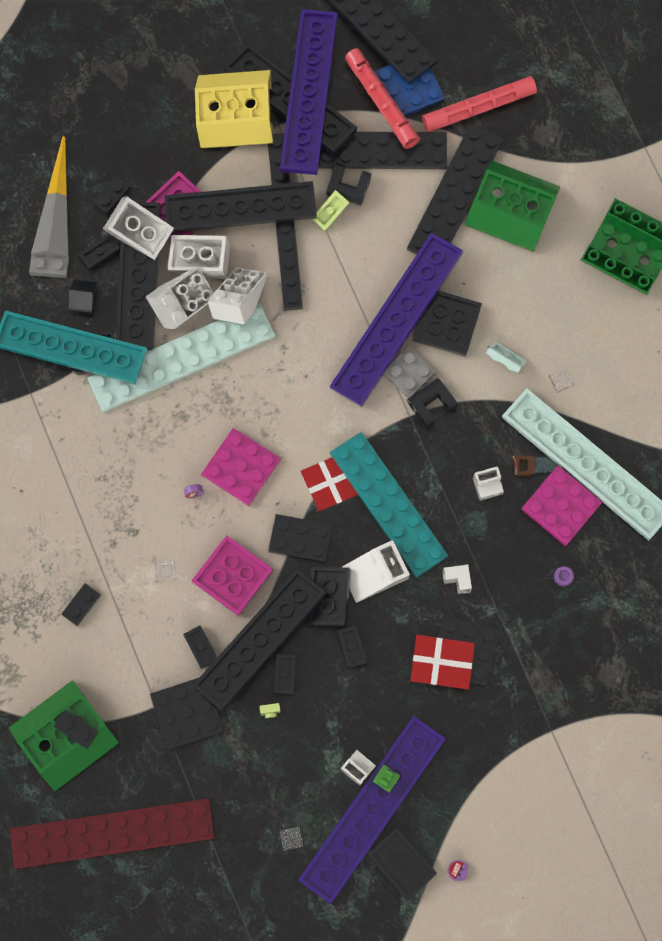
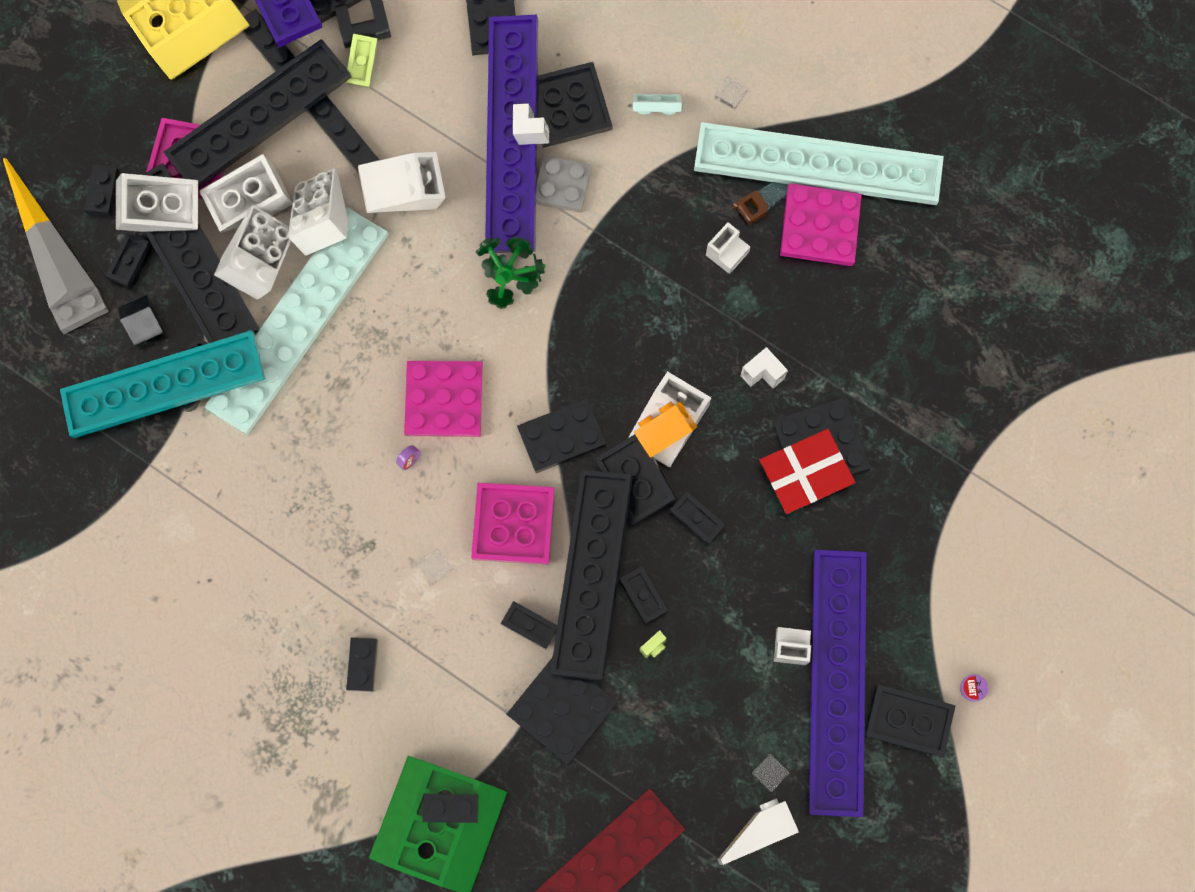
camera: 30 degrees left, 0 degrees up
(263, 870) = (764, 828): none -> white slope
(303, 309) = (402, 183): none -> white slope
(327, 484) = (557, 348): red sticker -> none
(330, 409) = (504, 272): none -> dark green plant
(366, 576) = (665, 428): none -> light orange brick
(386, 778) = (832, 637): bright green tile -> none
(388, 504) = (633, 337): teal plate -> none
(406, 324) = (527, 128): none -> white piece
(428, 394) = (602, 186): black connector -> none
(563, 576) = (873, 298): medium lavender tile -> none

